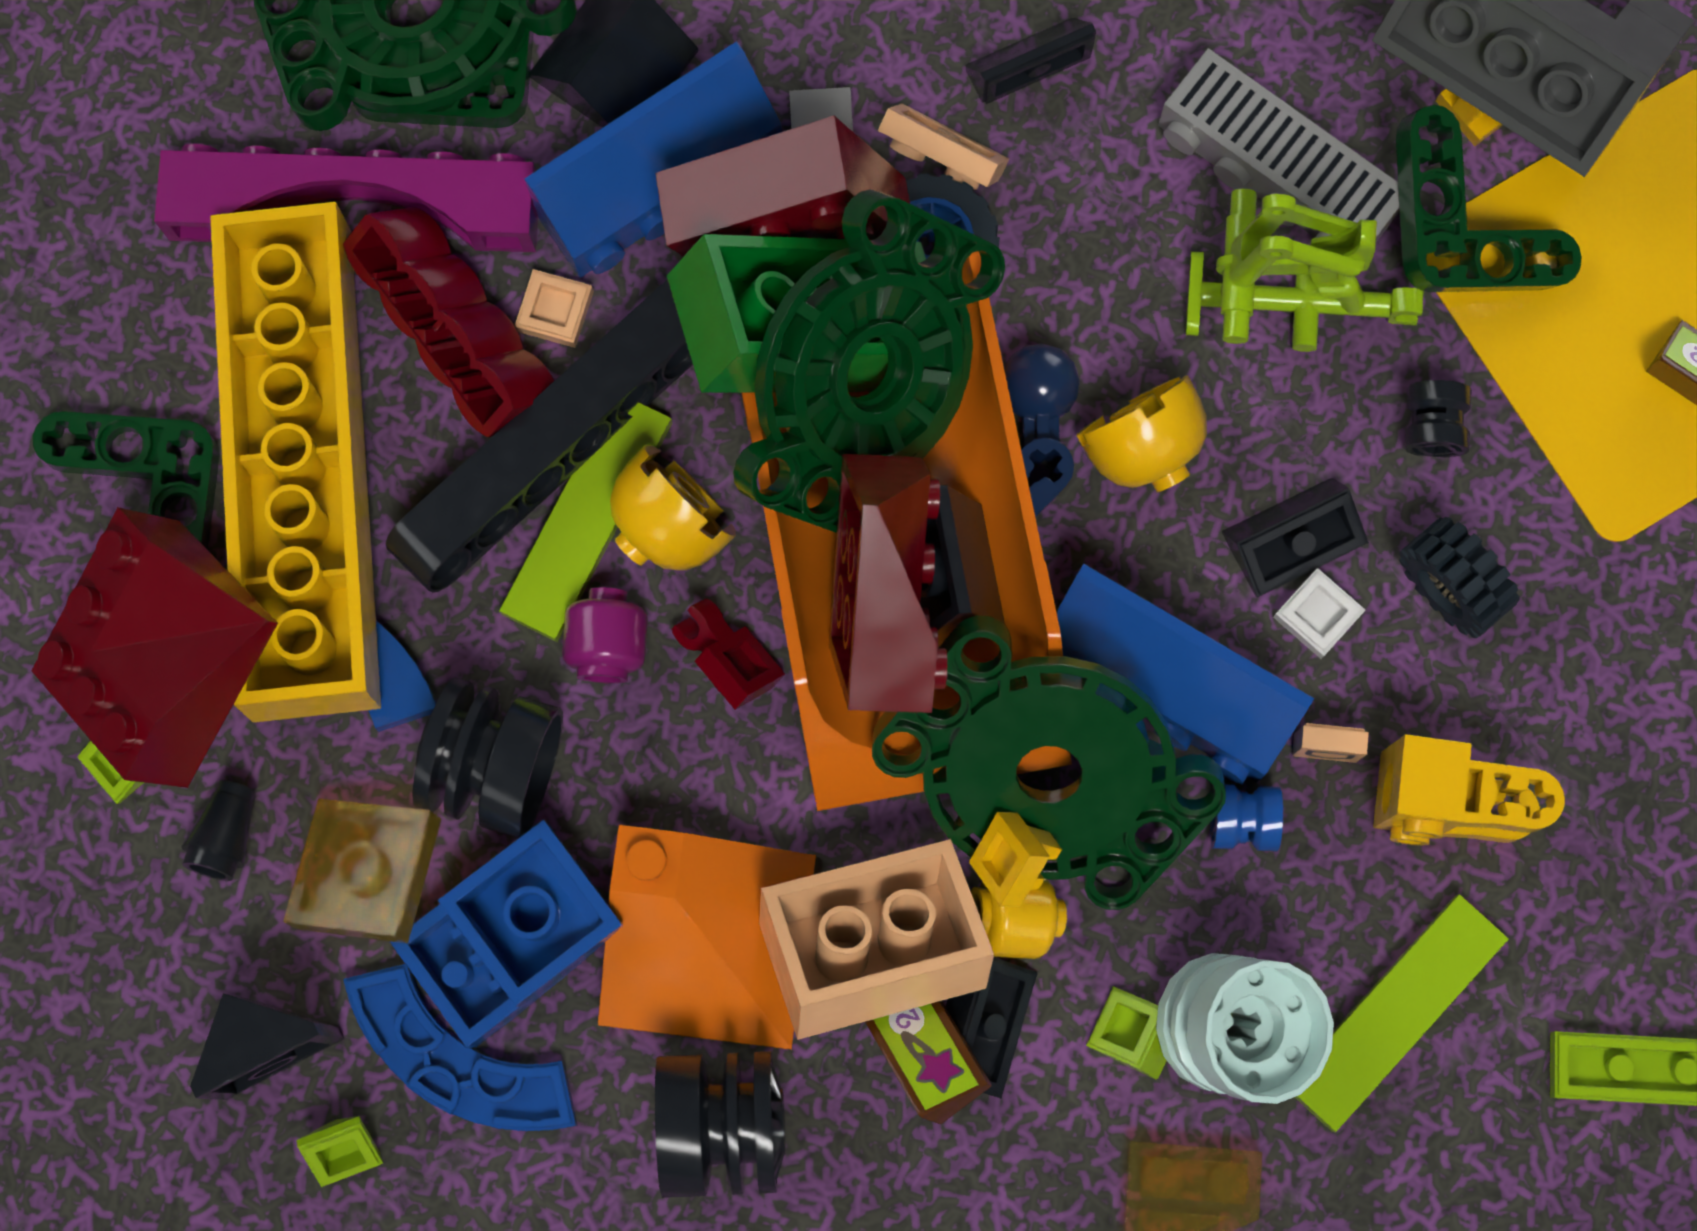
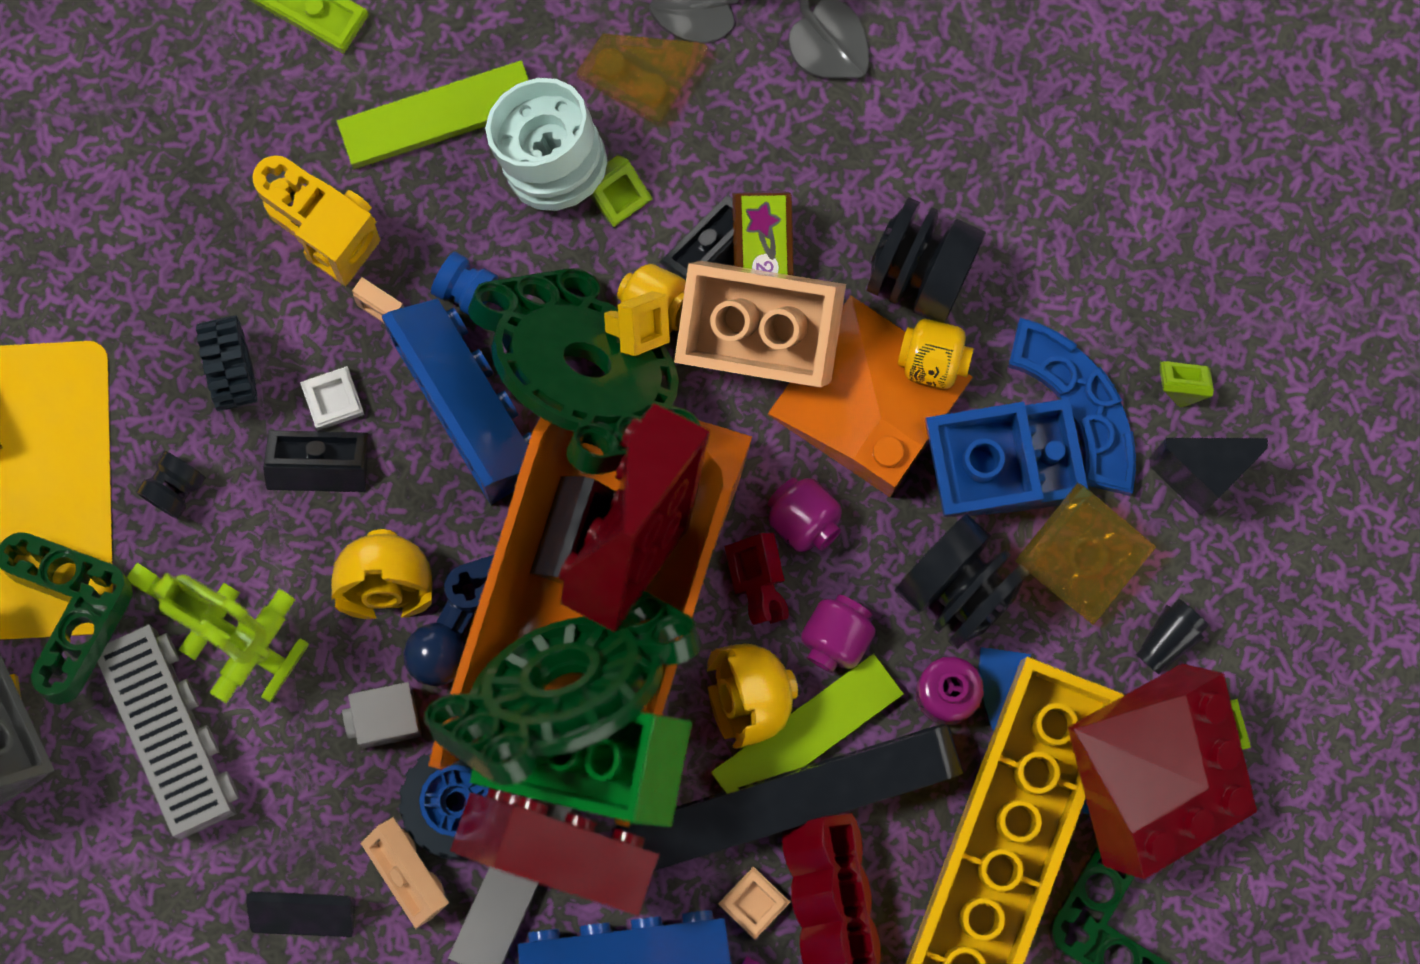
camera: 160 degrees left, 0 degrees up
(461, 648) = (938, 704): none -> magenta head
(651, 1015) = (935, 354): none -> yellow head
(710, 751) = (805, 514): none -> magenta head
(1059, 292) = (382, 716): none -> light grey brick

